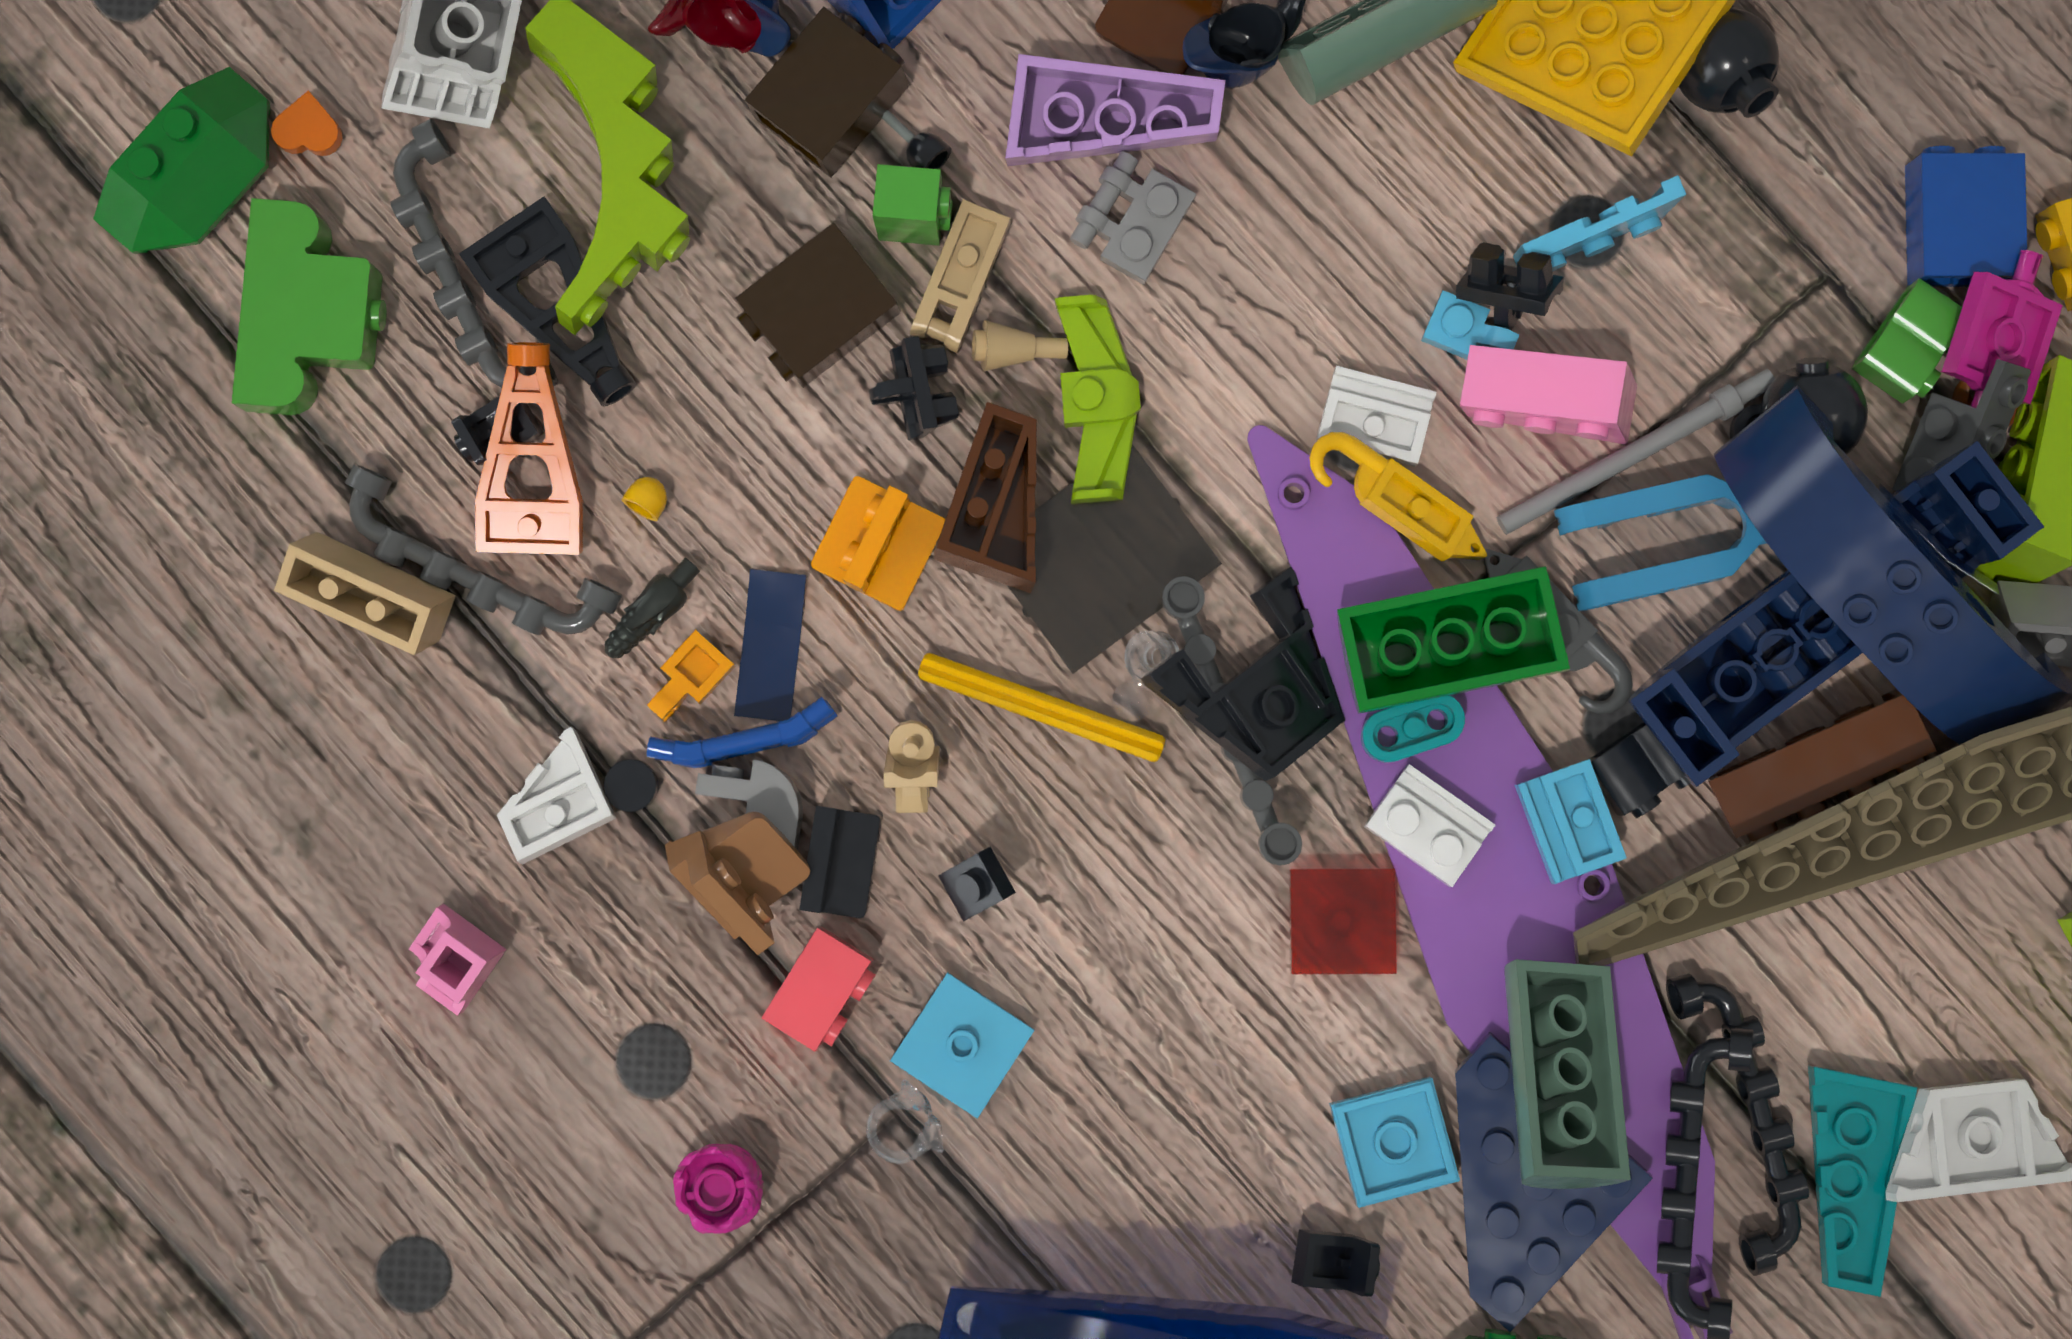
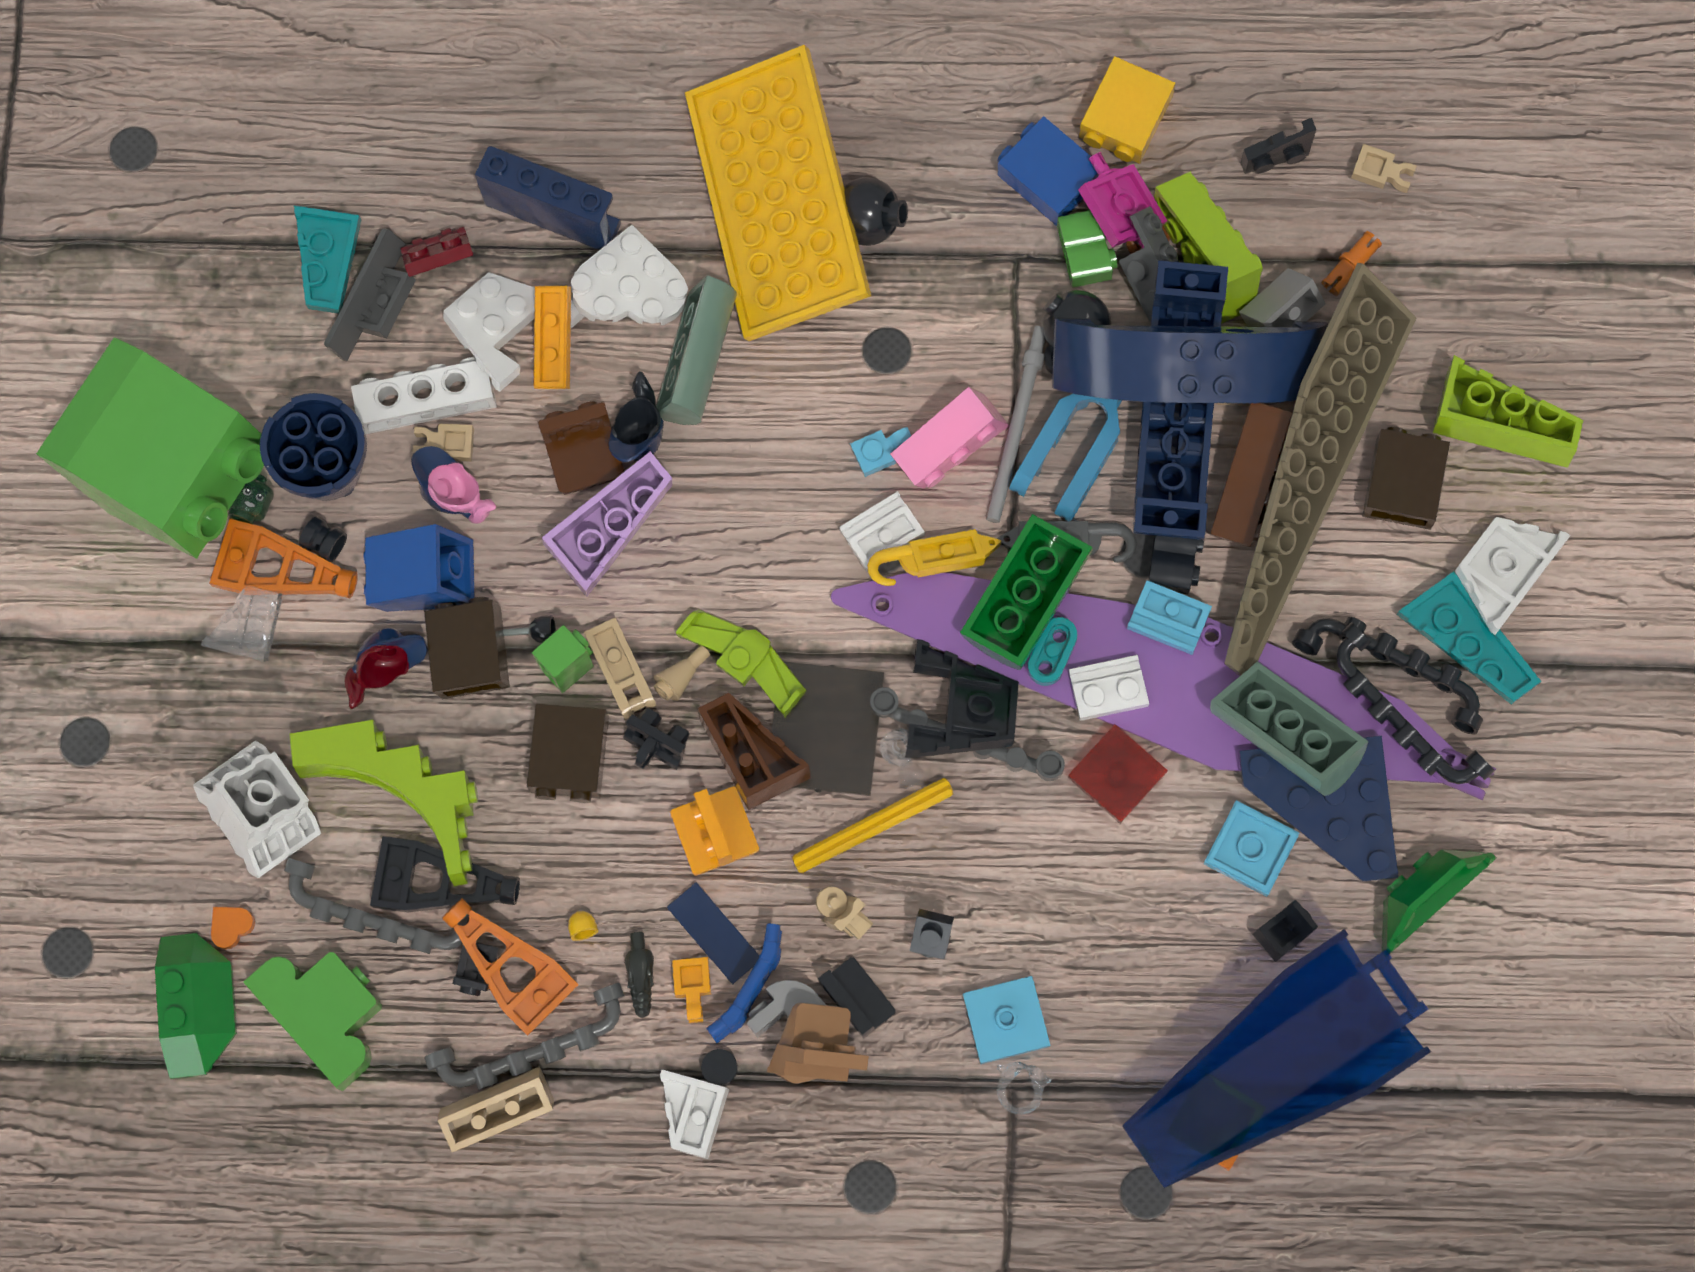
camera: 40 degrees left, 10 degrees down
(454, 958) = (724, 1237): bright pink brick -> none
(718, 1188) = (965, 1208): dark pink hair -> none
(819, 989) = (912, 1065): coral brick -> none
(1146, 226) = (682, 556): light grey plate -> none
(1528, 287) = (887, 401): black hips -> none
(1615, 221) = (879, 376): medium azure wing -> none
(1937, 544) = (1192, 323): dark blue sticker -> none
(1977, 939) = (1406, 478): none -> dark brown brick

